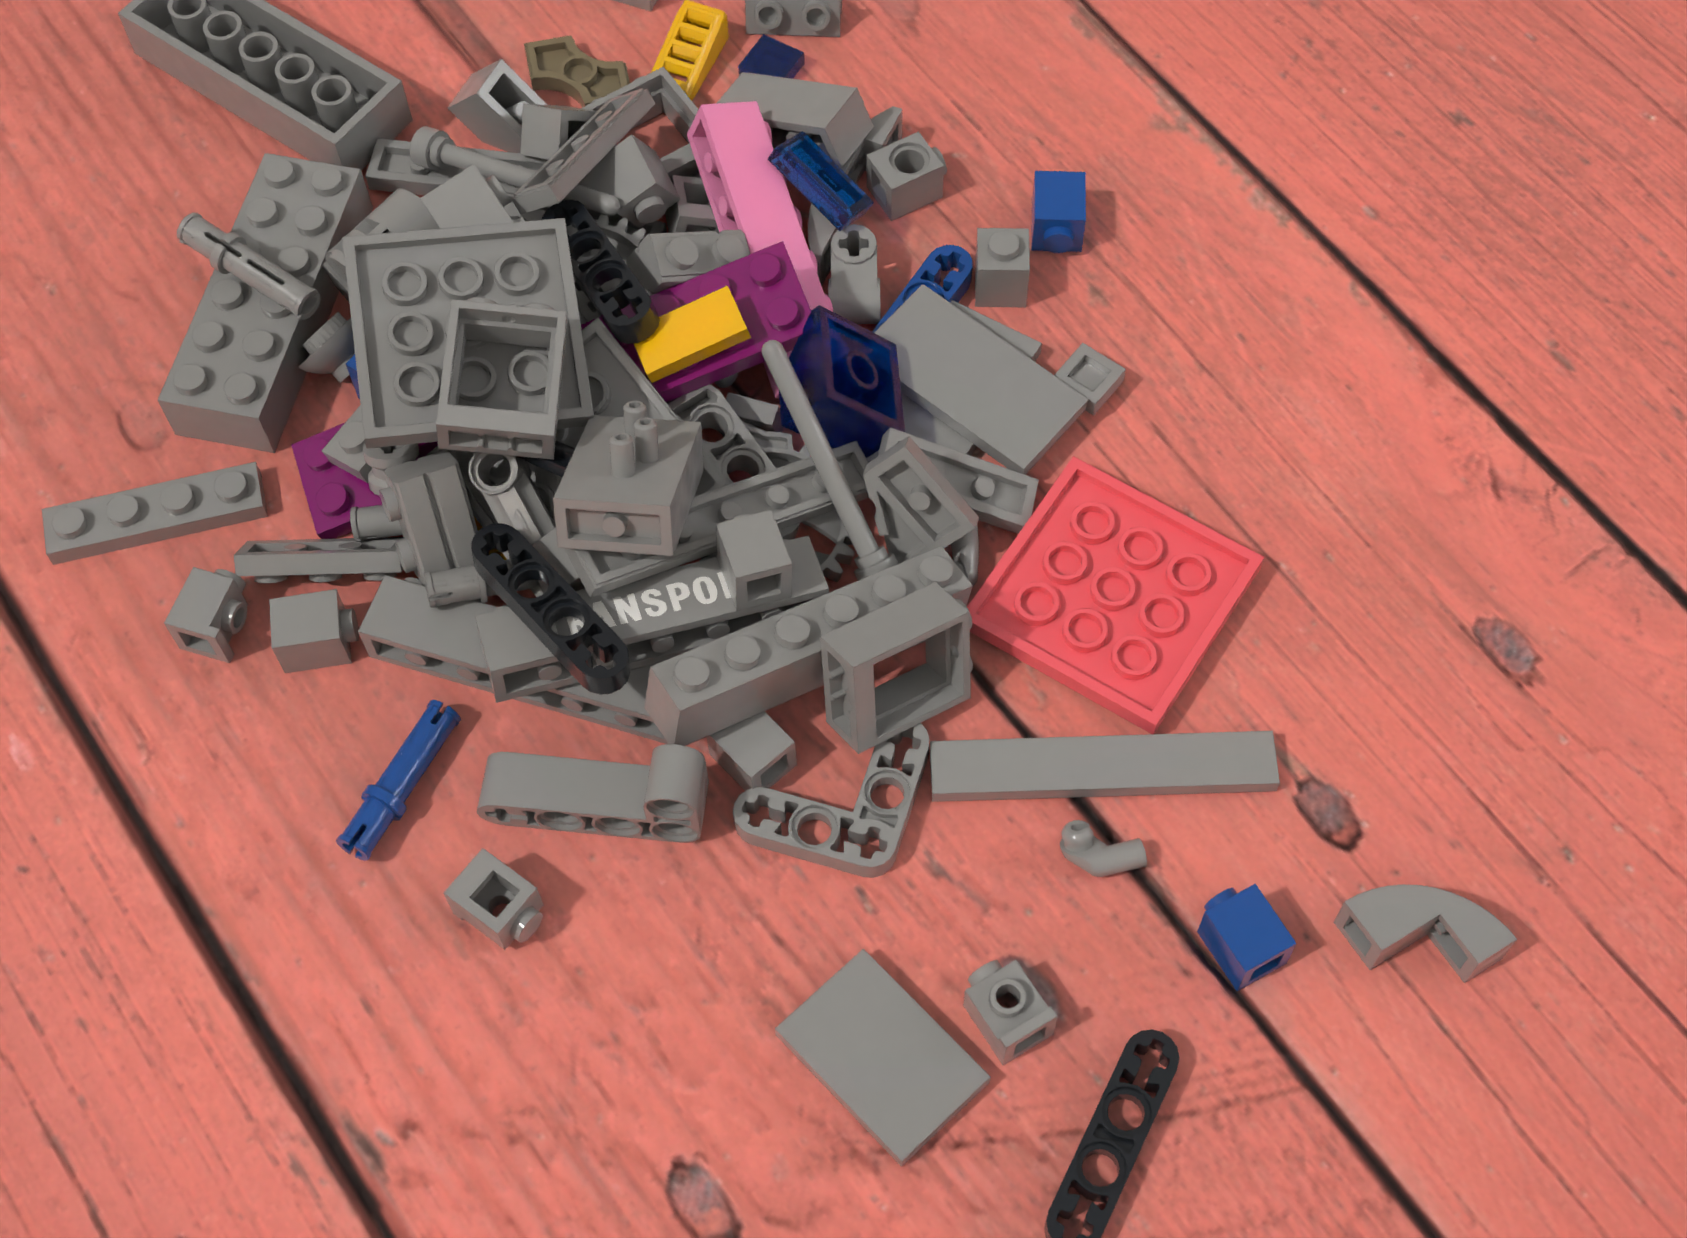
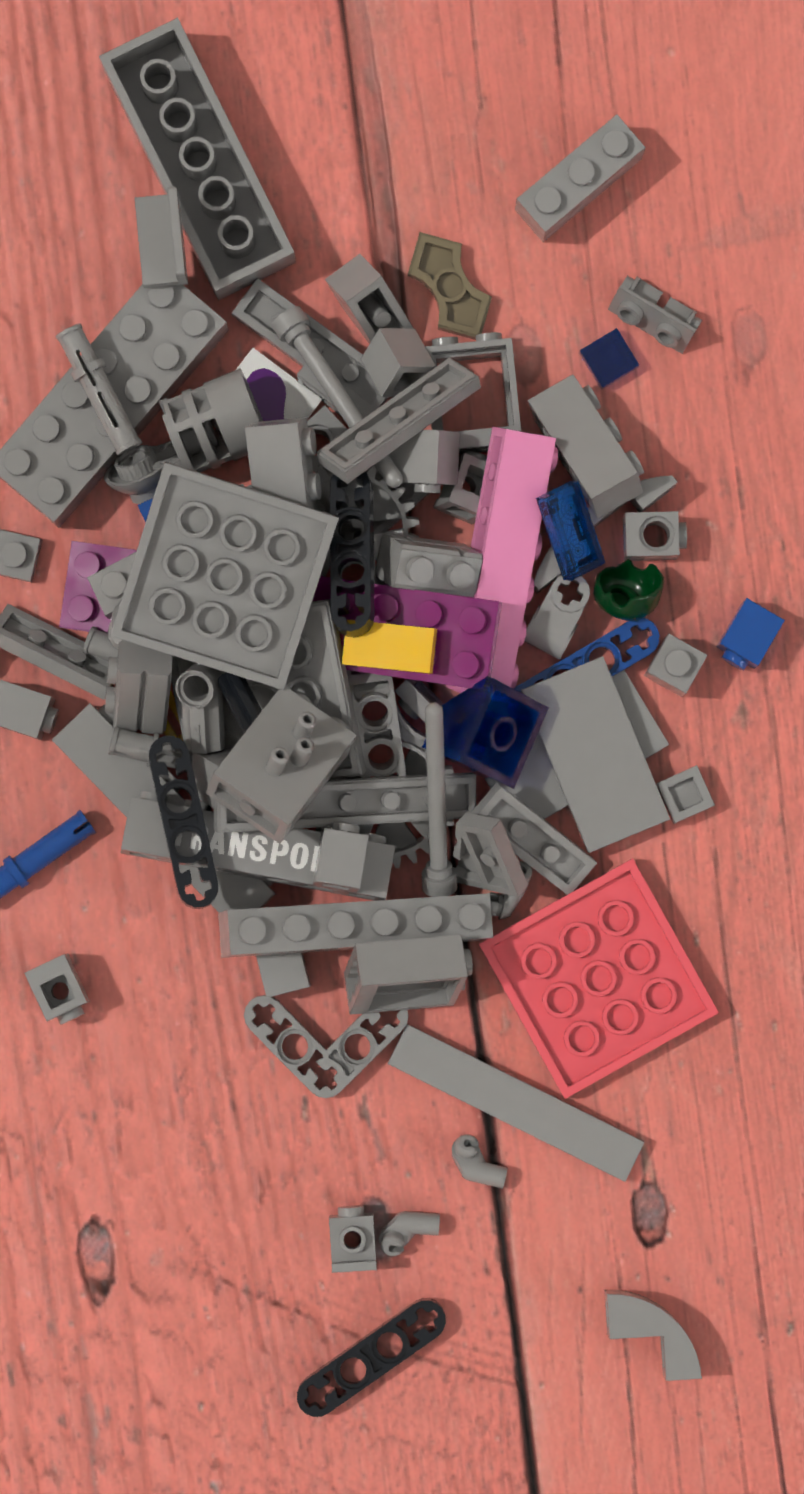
camera: 25 degrees right, 25 degrees up
(256, 116) = (161, 240): none -> light grey panel
(500, 429) = (205, 685): light grey window -> none
(599, 796) = (158, 945): light grey beam -> none
(697, 25) = (549, 290): yellow slope -> none
(882, 1056) = (257, 1223): light grey tile -> none
(916, 232) = (628, 591): none -> dark green hair
(1060, 967) = (404, 1228): none -> light grey arm
(1245, 935) = (534, 1274): blue brick -> none

